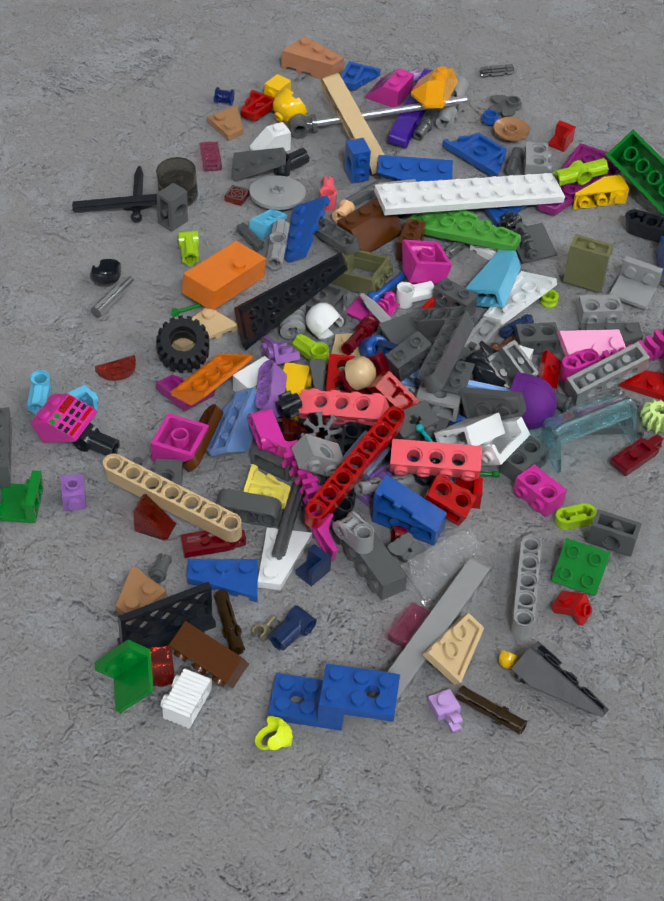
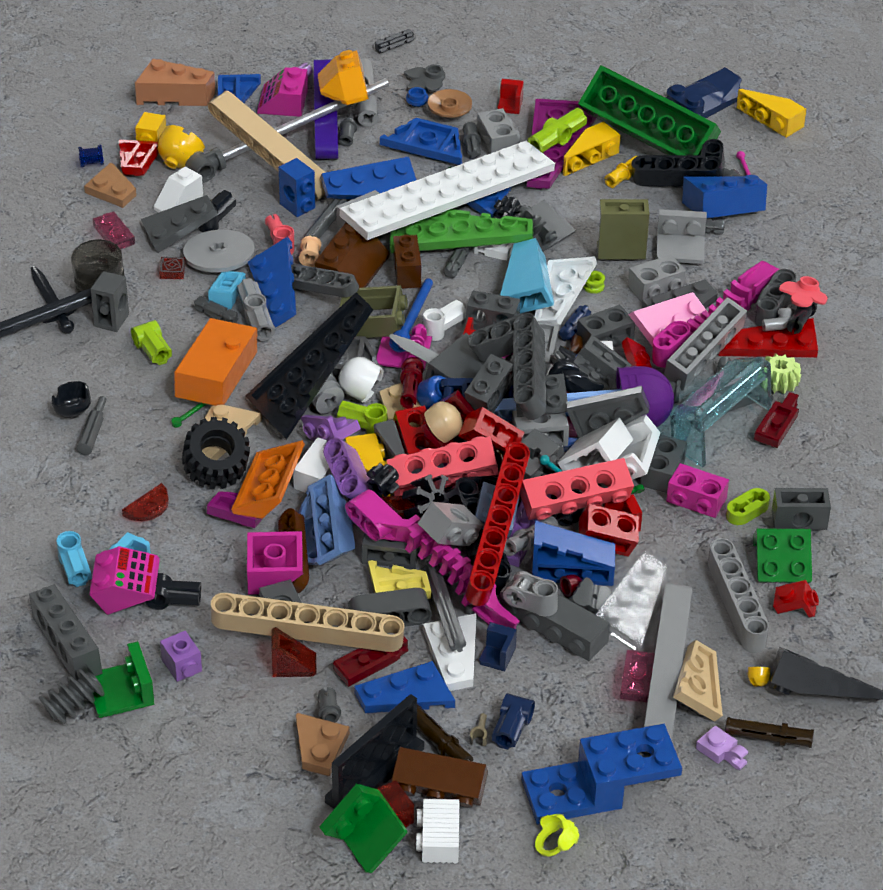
camera: 20 degrees left, 5 degrees down
(424, 261) = (439, 280): dark pink slope -> none
(614, 220) = (622, 172): none -> yellow axle

